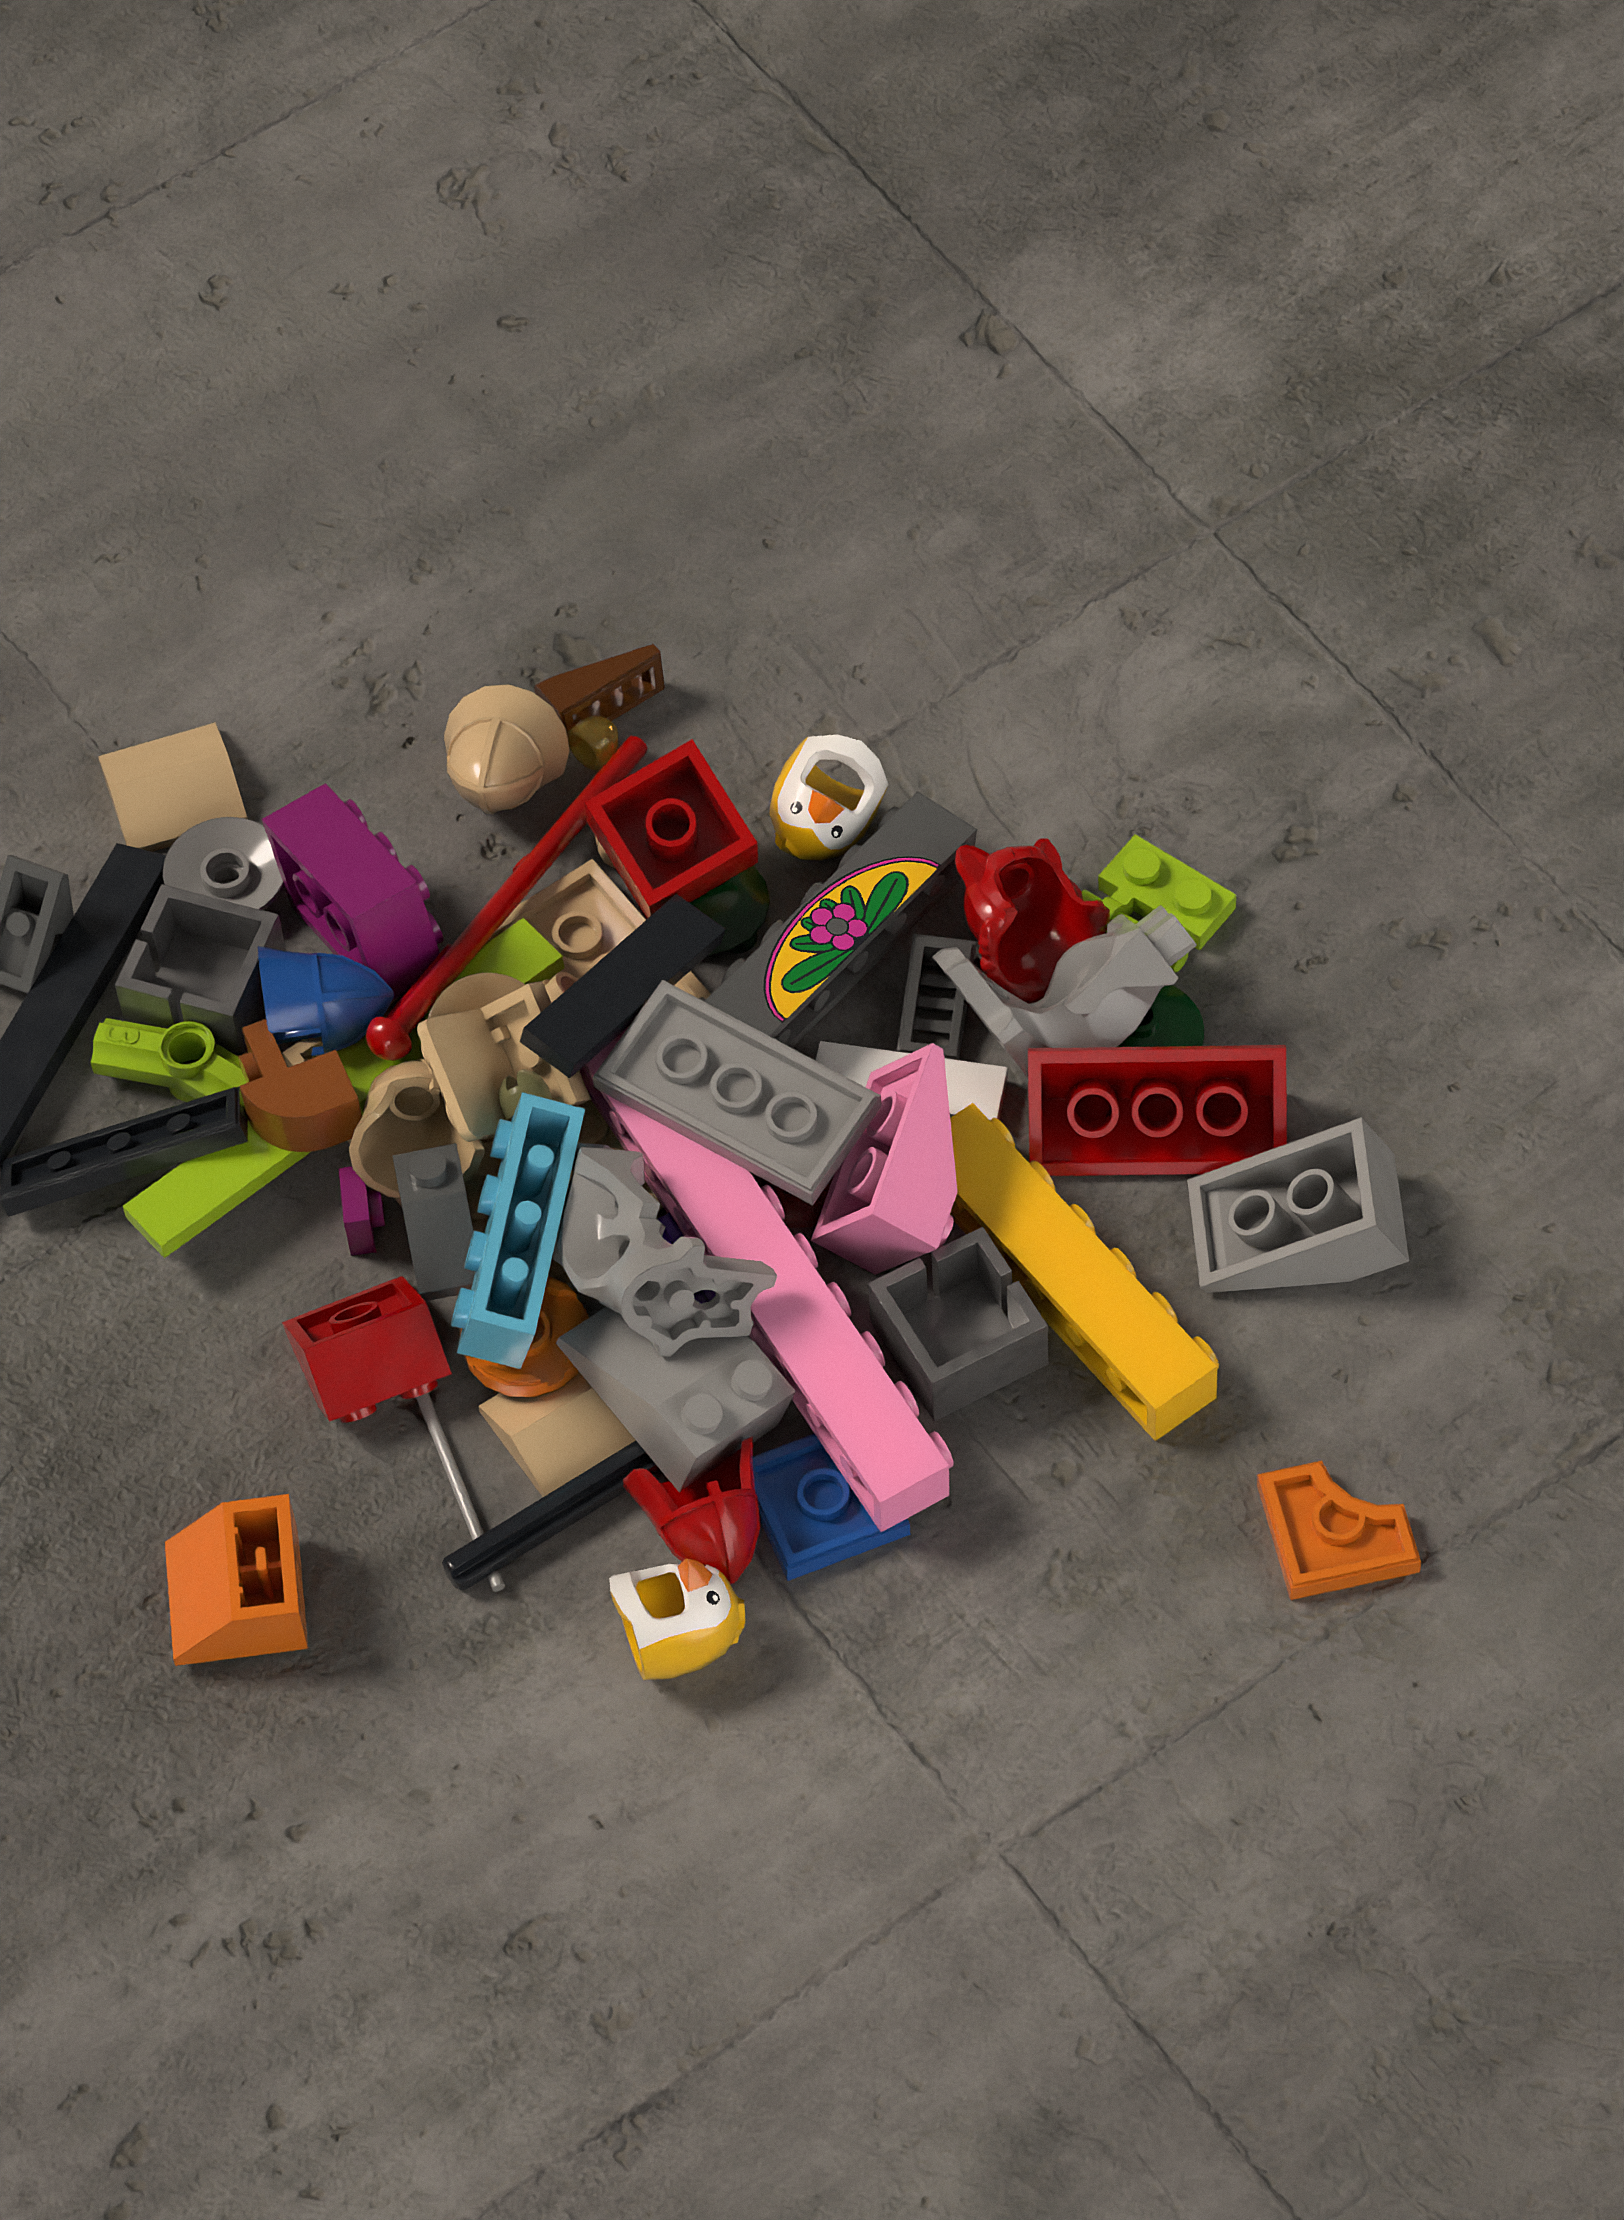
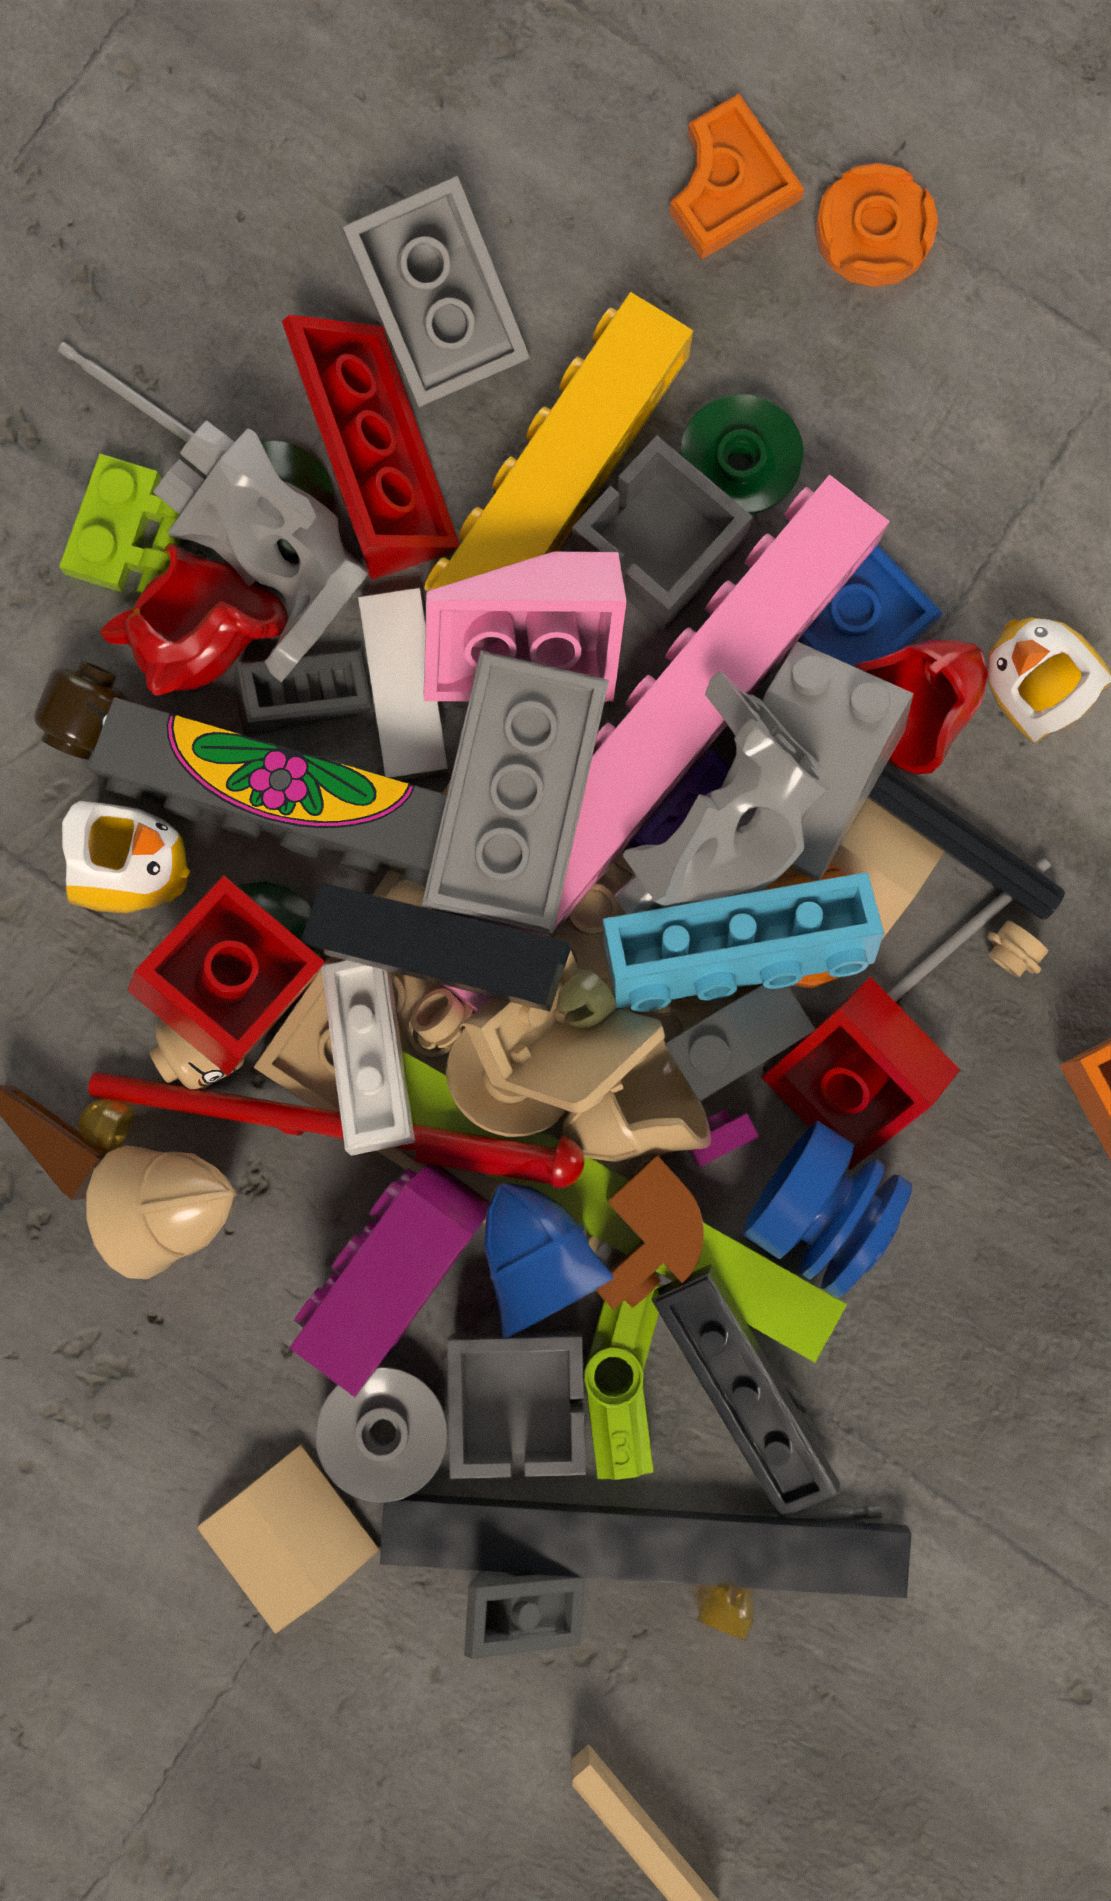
camera: 115 degrees left, 25 degrees up
(264, 1249) = (828, 1210): none -> blue wheel
(423, 1524) = (1016, 950): none -> tan plate
(542, 925) = (367, 1057): none -> white tile
(990, 805) = (76, 708): none -> dark brown head
(1020, 1409) = (752, 429): none -> dark green dish
(1231, 1653) = (876, 225): none -> orange tile
(1279, 953) = (126, 392): none -> light grey piece

